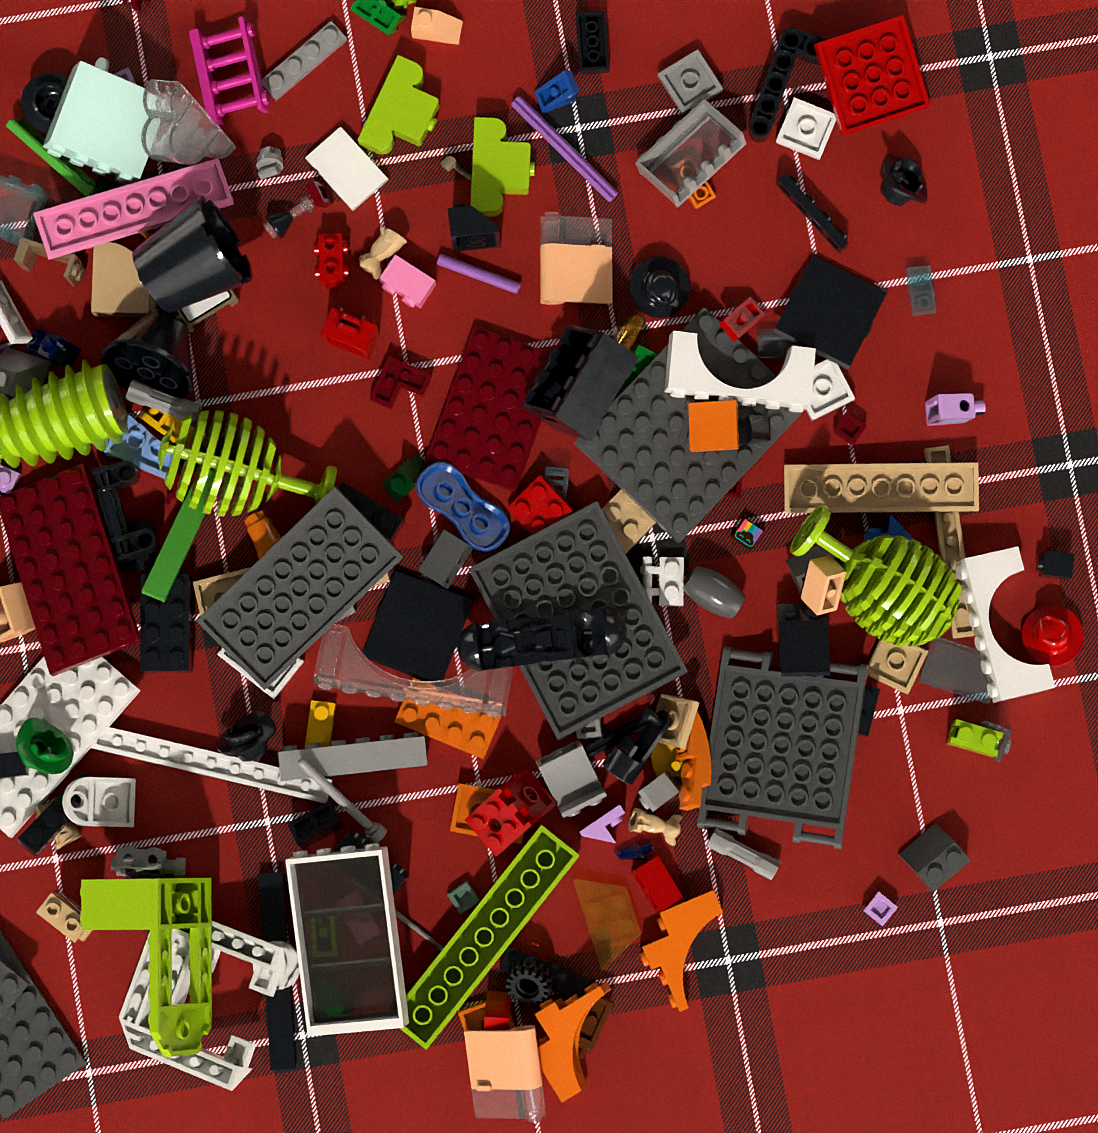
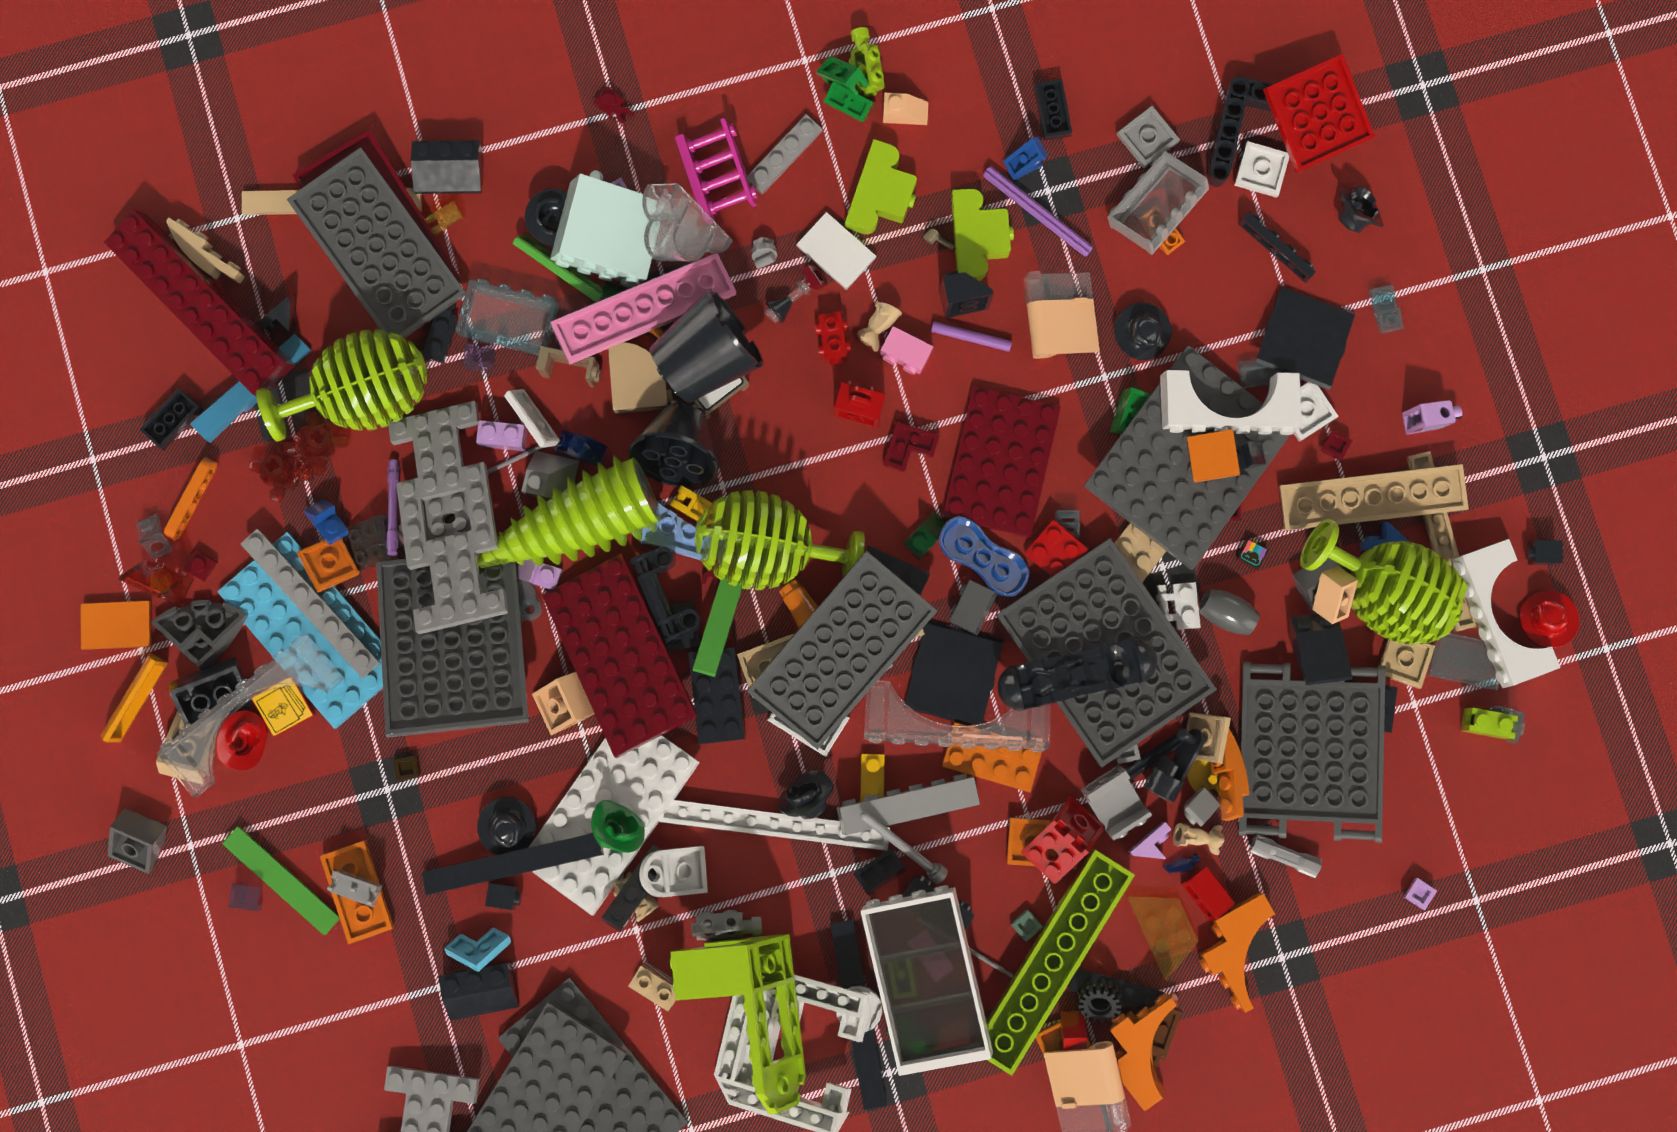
camera: 10 degrees left, 0 degrees up
(147, 396) = (674, 483): light grey axle -> none
(579, 381) = (1083, 427): black container -> none
(628, 332) = (1117, 380): clear yellow hinge -> none
(742, 319) = (1224, 353): red plate -> none
(934, 857) = (1465, 840): dark grey slope -> none

